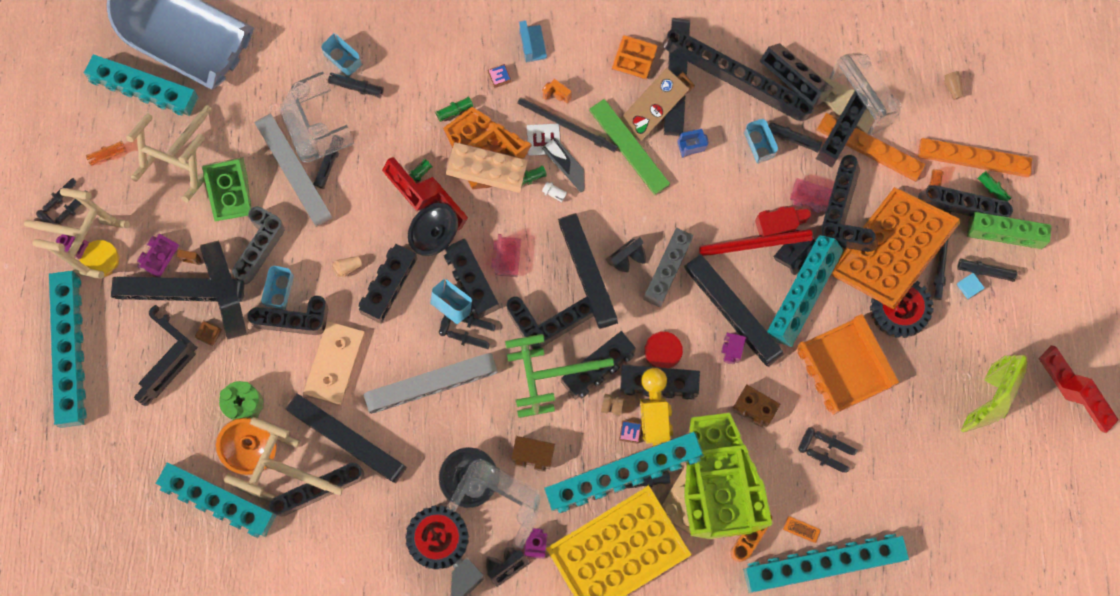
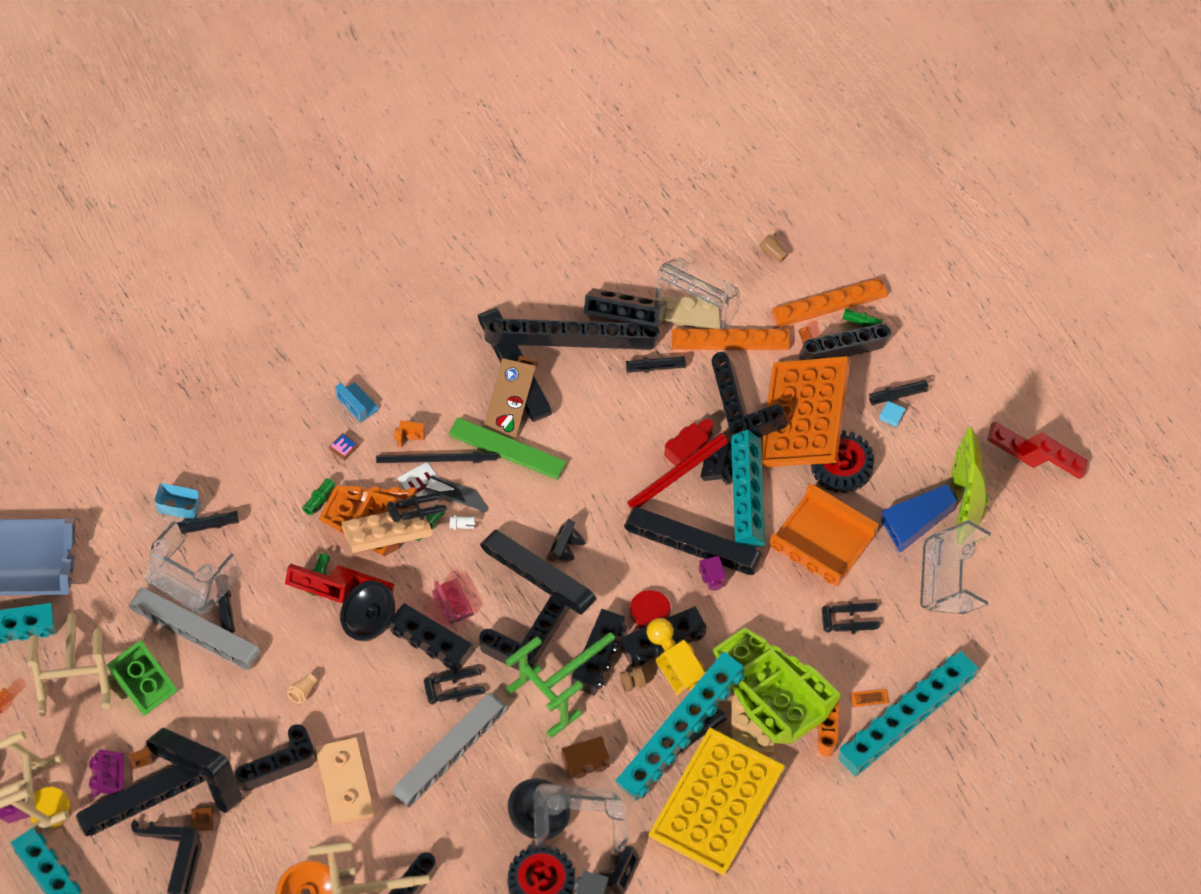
camera: 30 degrees left, 15 degrees down
(233, 394) = (268, 856): bright green brick -> none
(254, 246) = (203, 698): dark grey beam -> none
(271, 283) = (248, 723): medium azure piece -> none
(346, 438) = (401, 839): black beam -> none
(379, 310) = (352, 652): black brick -> none
(453, 295) = (425, 665): medium azure piece -> none
(522, 155) = (394, 513): none -> black piece
(536, 551) = (641, 841): magenta brick -> none
(630, 432) = (663, 695): tile -> none
(634, 57) = (463, 367): orange slope -> none
(668, 267) = (610, 534): dark grey brick -> none
(692, 142) = (564, 414): blue window -> none
(756, 406) = (764, 612): reddish brown brick -> none
(762, 127) = (625, 371): medium azure piece -> none
(811, 195) = (701, 406): clear pink bracket -> none
(842, 131) = (697, 334): black brick -> none
(931, 452) = (944, 567): none -> clear windscreen
(934, 391) = (916, 516): none -> blue slope
(940, 279) = (862, 421): black bar -> none
(1009, 230) = (897, 349): bright green brick -> none

